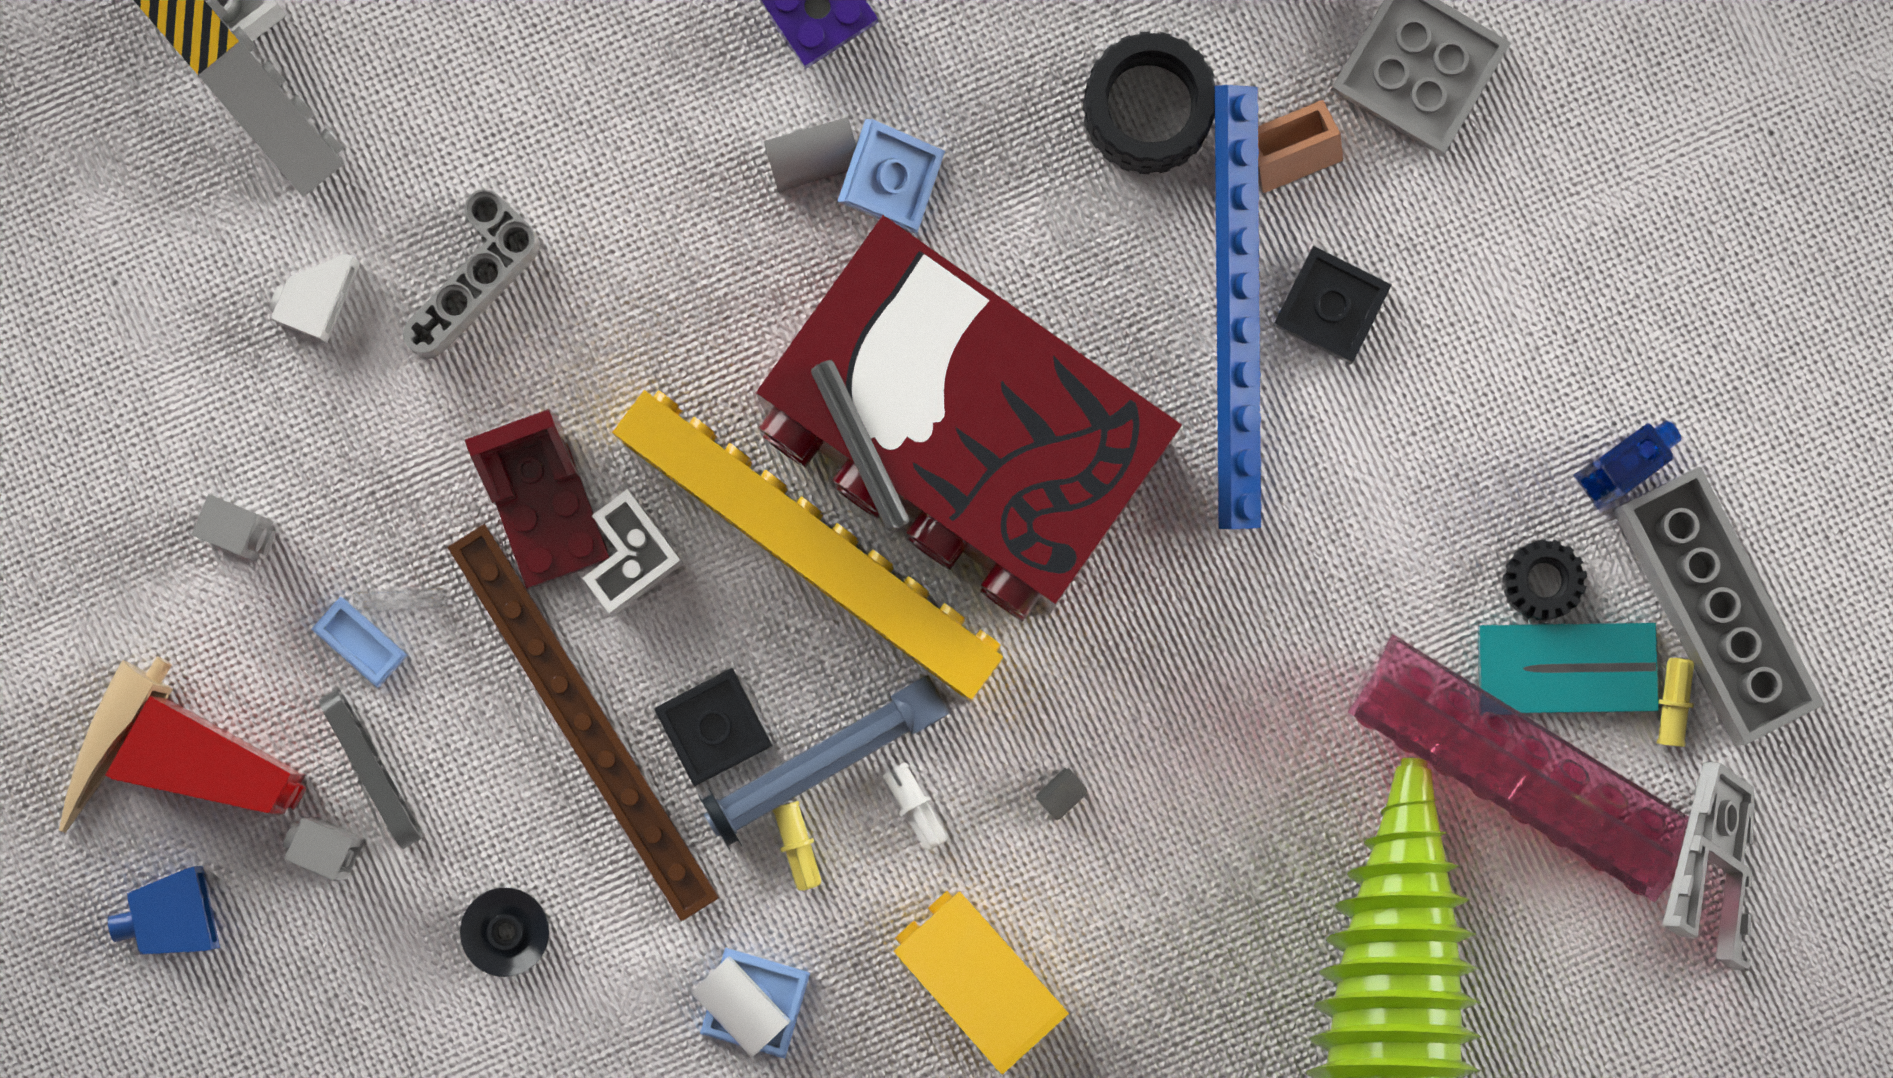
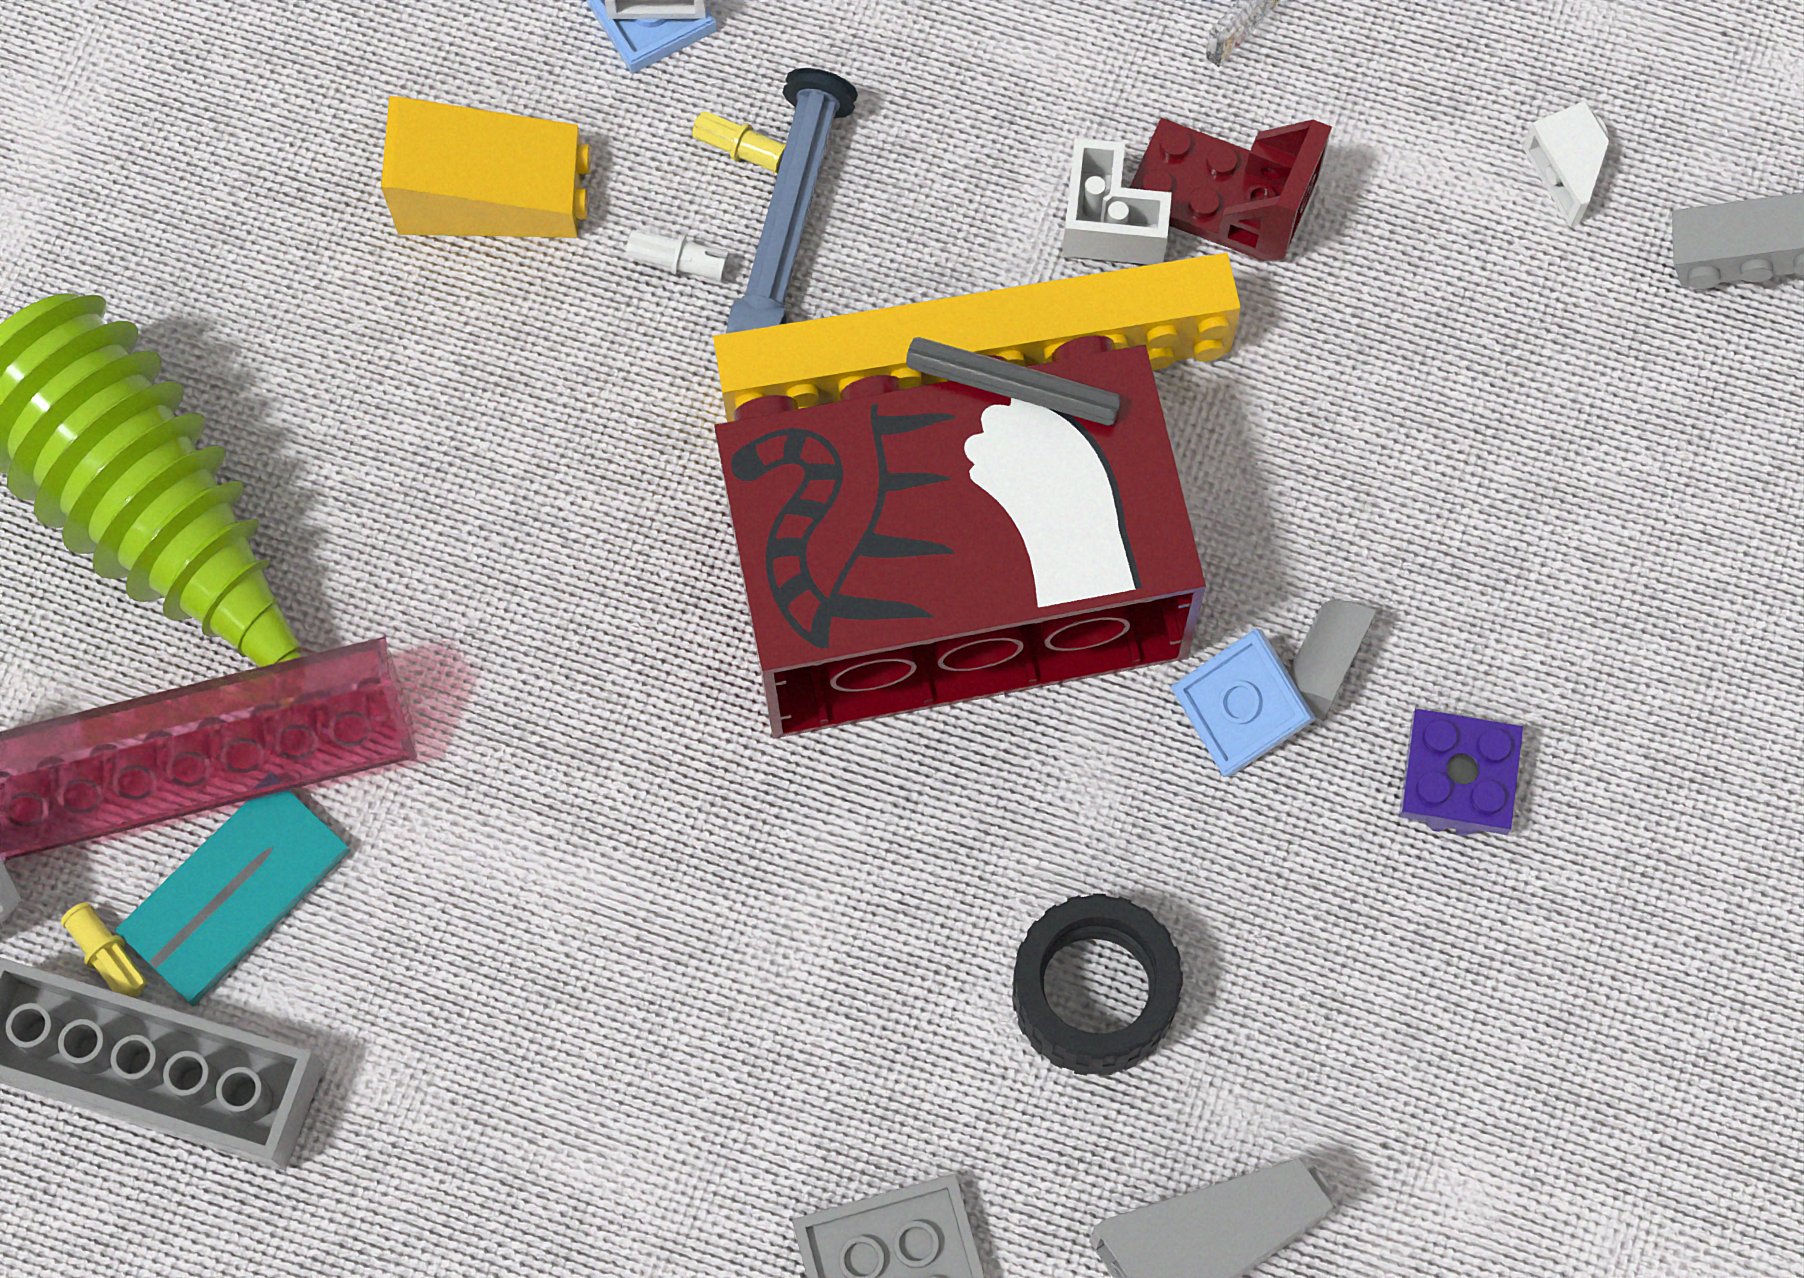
camera: 135 degrees right, 15 degrees down
(464, 280) = (1474, 284): light grey beam -> none
(583, 722) = (1006, 68): reddish brown plate -> none
(713, 727) = (902, 164): black tile -> none
(1061, 793) = (571, 375): dark grey slope -> none
(1238, 307) = (838, 892): blue plate -> none
(1297, 146) = (934, 1086): nougat brick -> none
(1332, 305) = (754, 985): black plate -> none
(1571, 580) = (303, 917): black tyre -> none
(1628, 463) = (349, 1088): clear blue torso -> none

